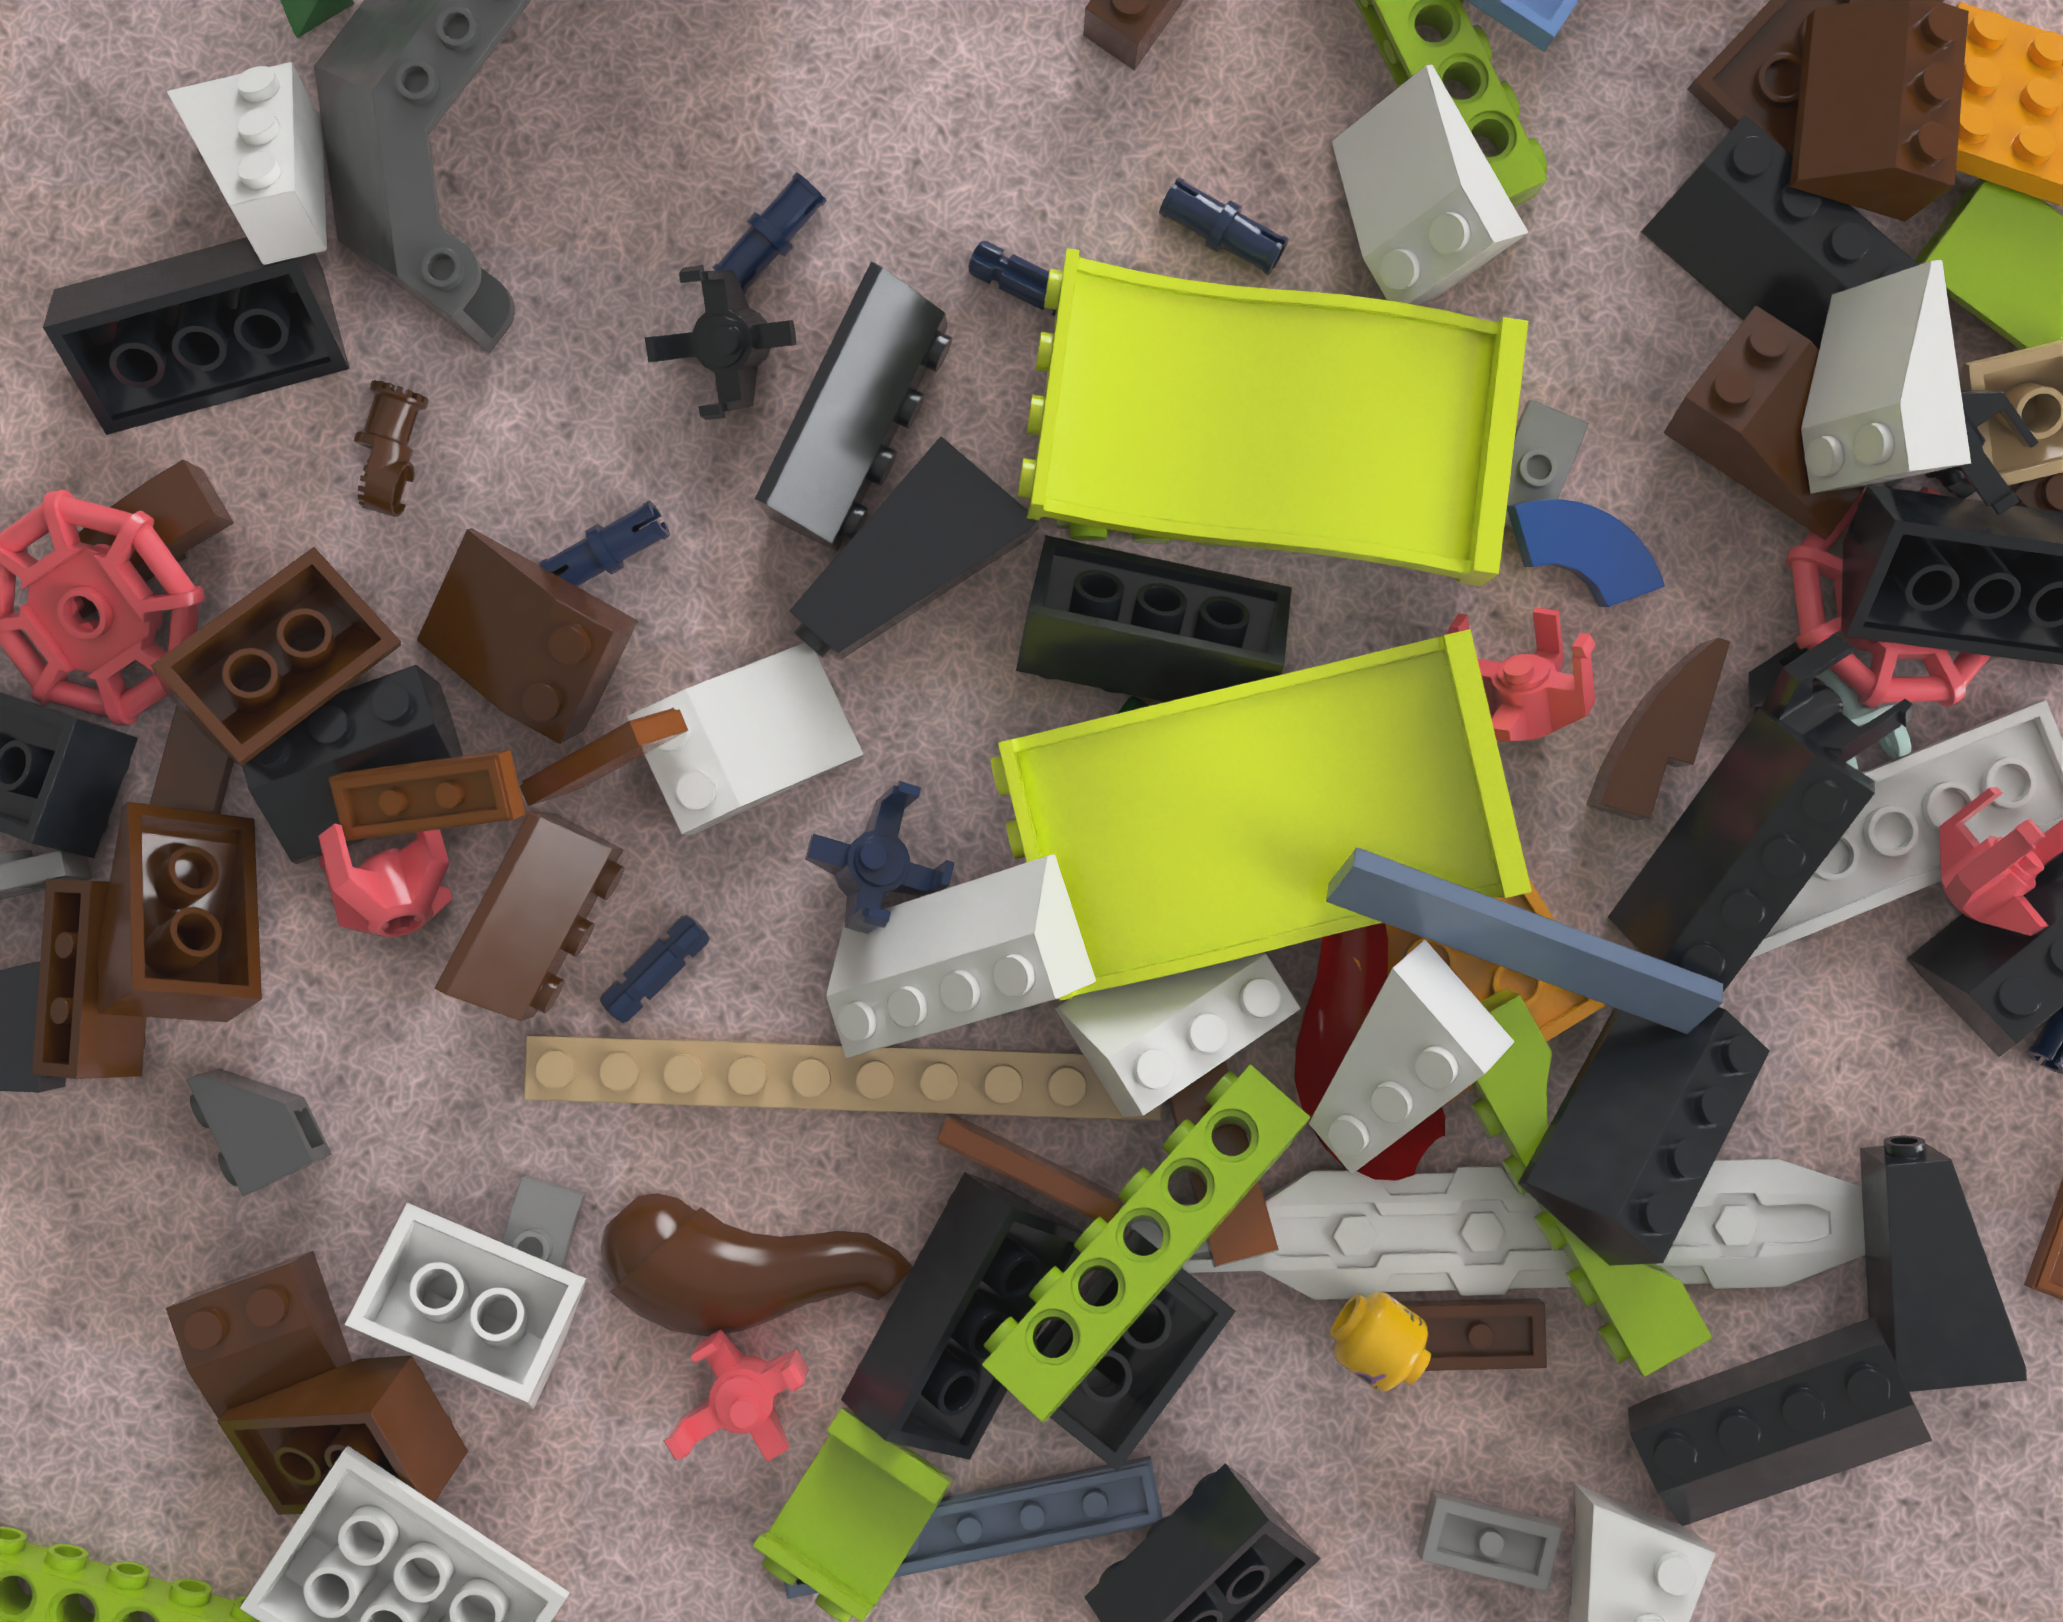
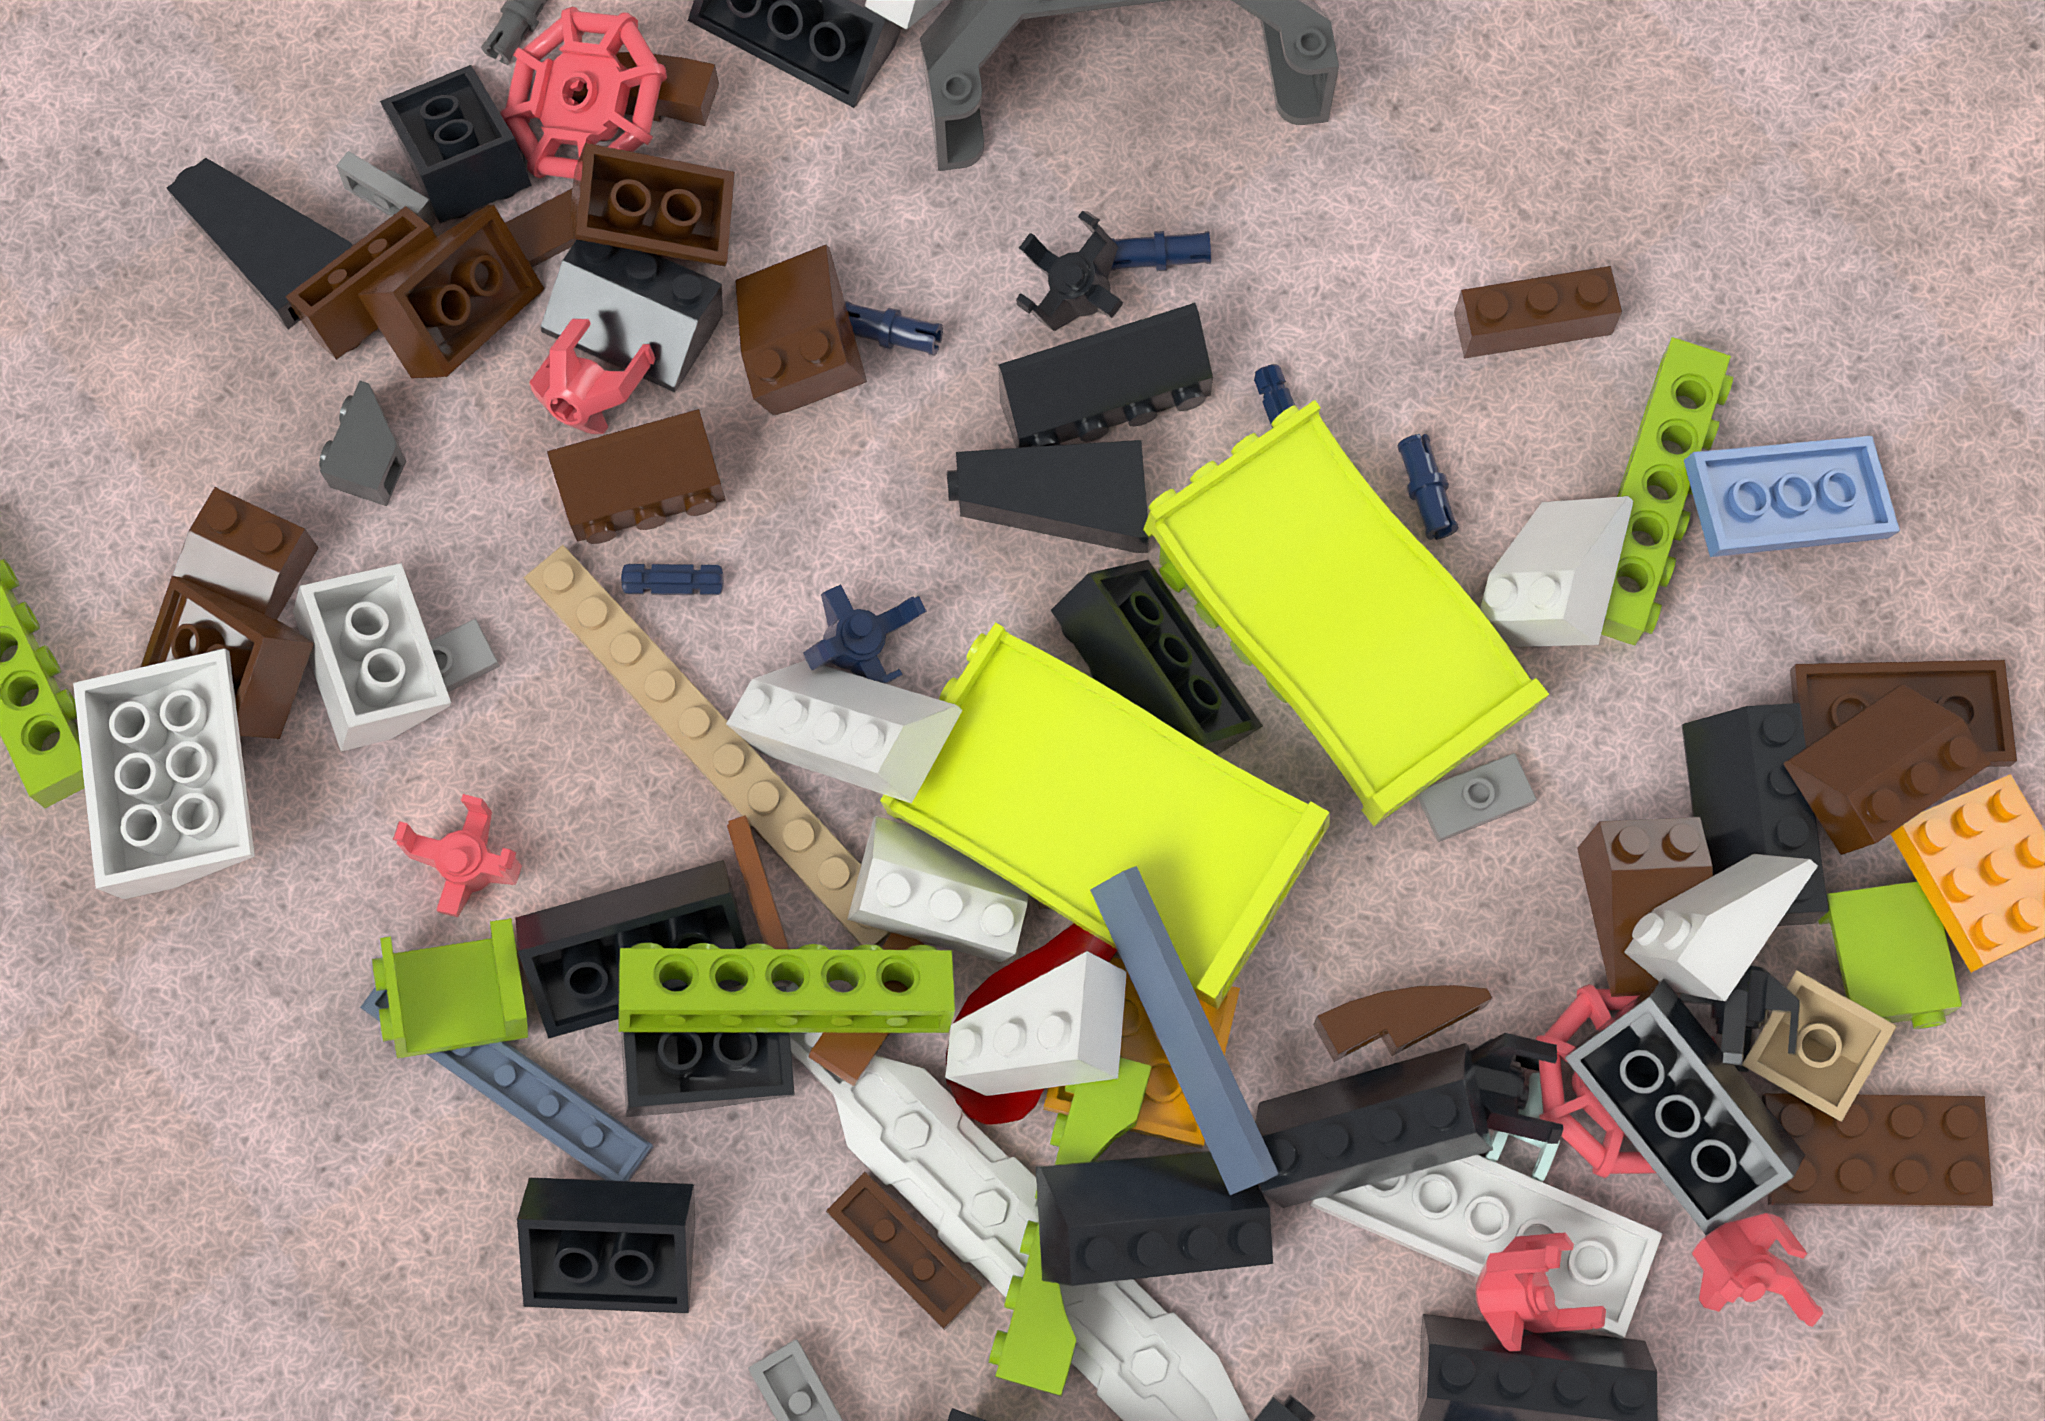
camera: 50 degrees right, 15 degrees down
(388, 436) = (833, 160): reddish brown connector -> none
(427, 795) = (653, 350): dark orange tile -> none
(603, 755) = (770, 426): dark orange tile -> none
(712, 1277) = (514, 768): reddish brown animal -> none
(750, 738) = (857, 501): white slope -> none
(1380, 1341) = (860, 1198): yellow head -> none
(1528, 691) = (1337, 910): coral piece -> none
(1587, 544) = (1465, 867): blue tile -> none

